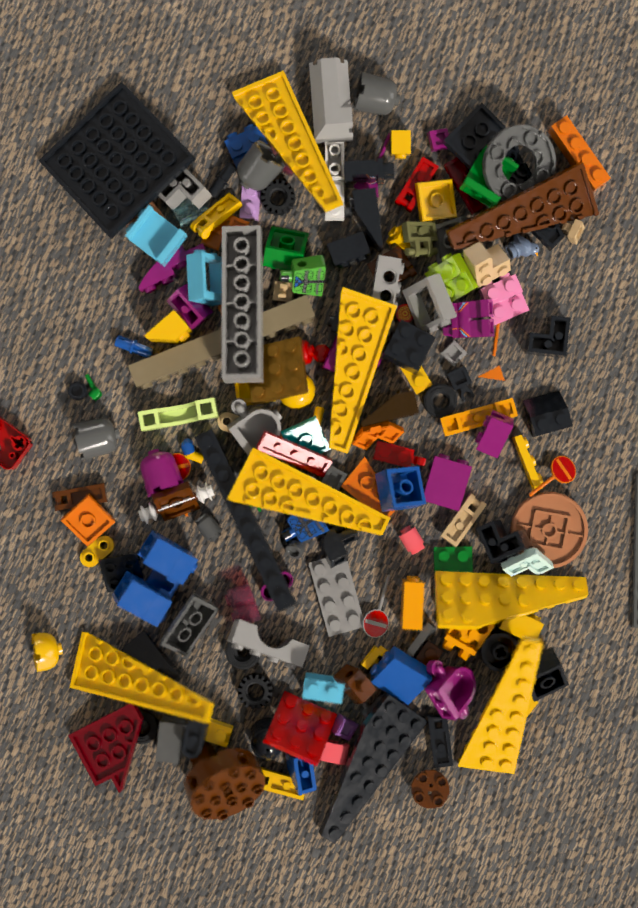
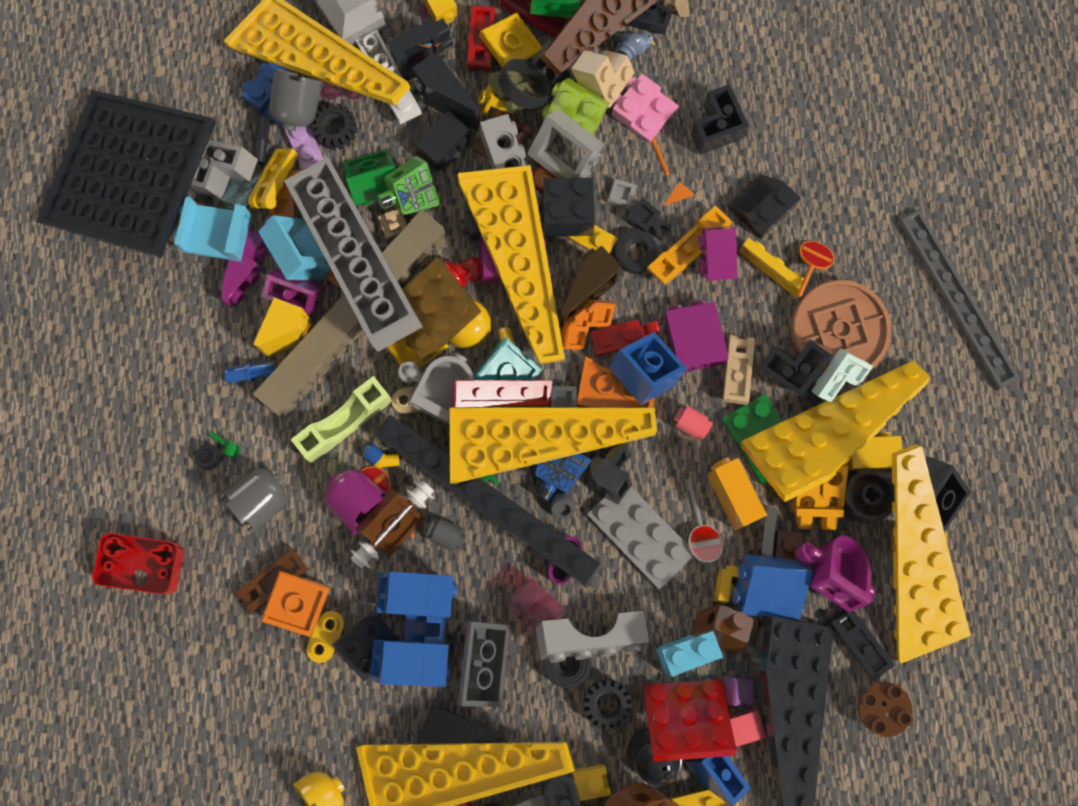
camera: 25 degrees left, 10 degrees down
(440, 236) = (515, 94): none -> black tyre
(465, 325) = (623, 144): magenta hips -> none

